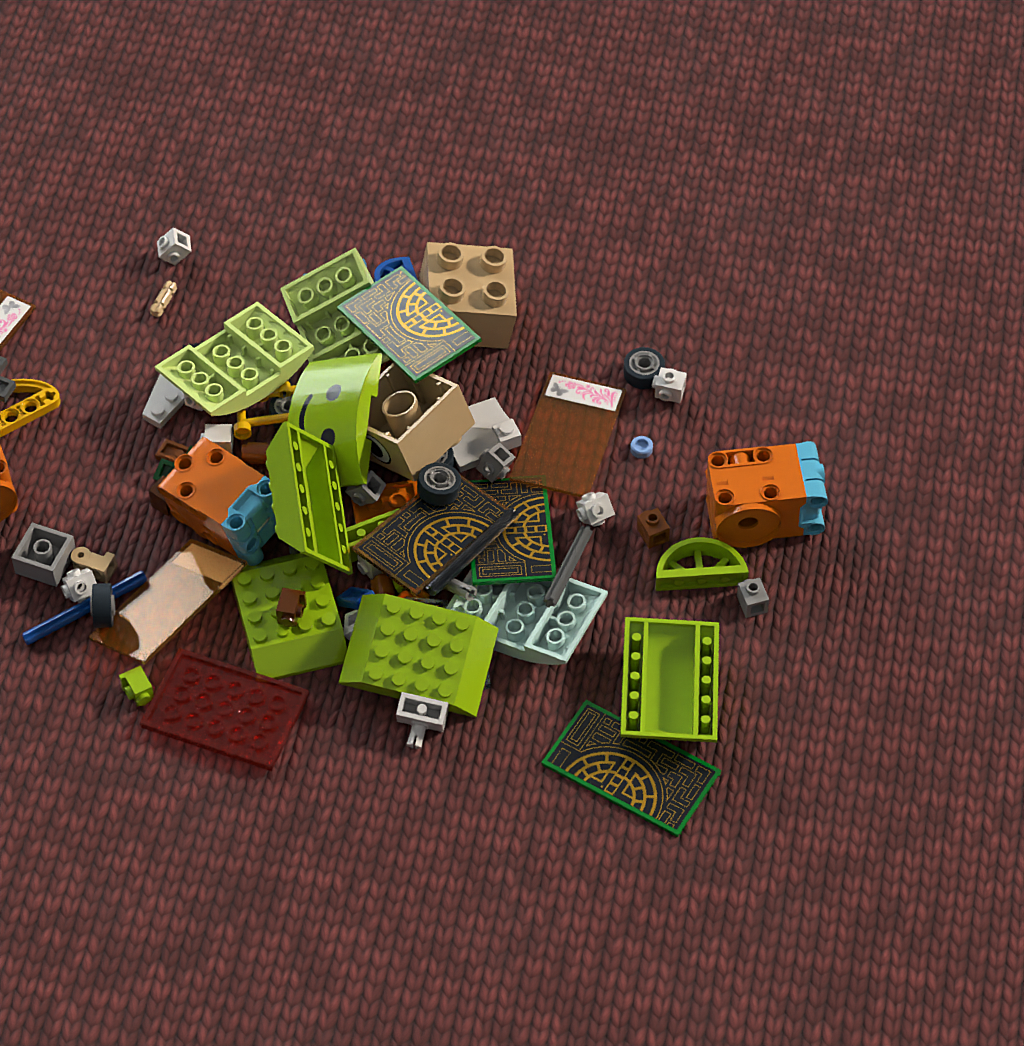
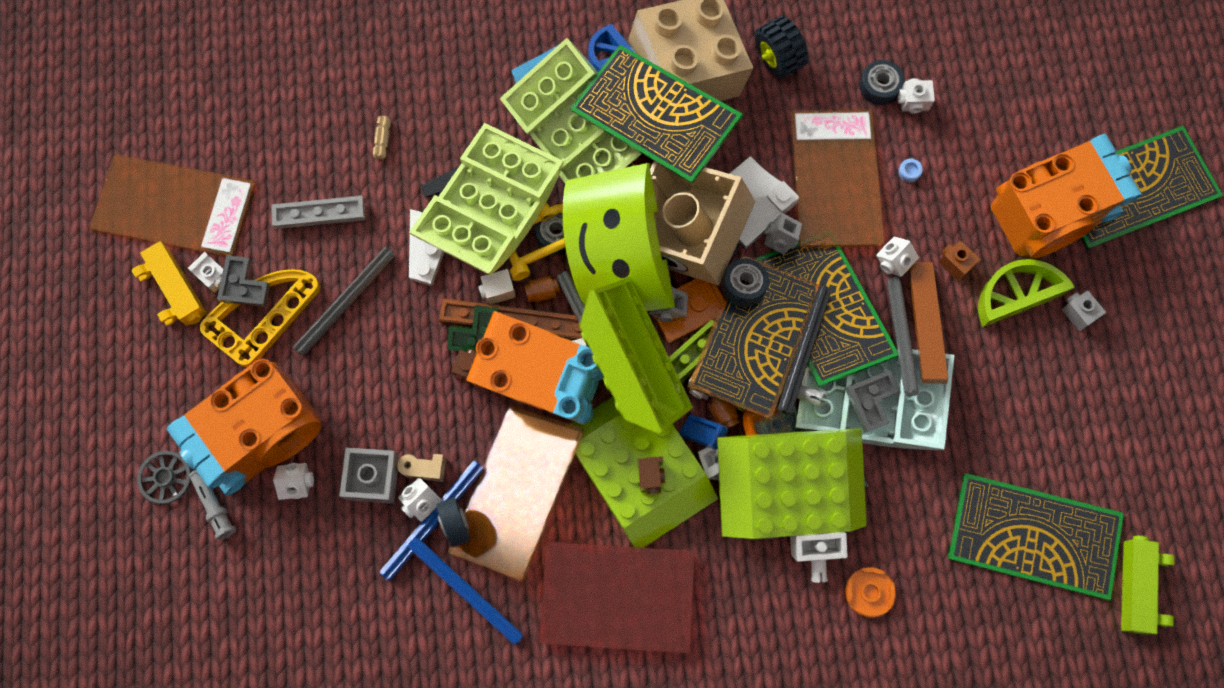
camera: 15 degrees left, 20 degrees up
(76, 418) = (344, 301): none -> dark grey axle
(82, 342) = (318, 212): none -> light grey plate
(91, 666) = (465, 590): none -> blue axle
(137, 686) = (521, 600): lime brick -> none
(174, 246) = (372, 76): white brick -> none
(457, 769) = (870, 592): none -> orange tile
(513, 605) = (866, 398): none -> dark grey plate
(556, 312) = (781, 47): none -> black wheel
(596, 562) = (928, 324): none -> dark orange tile
(670, 680) = (1049, 439): lime slope -> none
(708, 827) = (1141, 586): none -> lime brick
(869, 517) = (1170, 181): none -> black piece

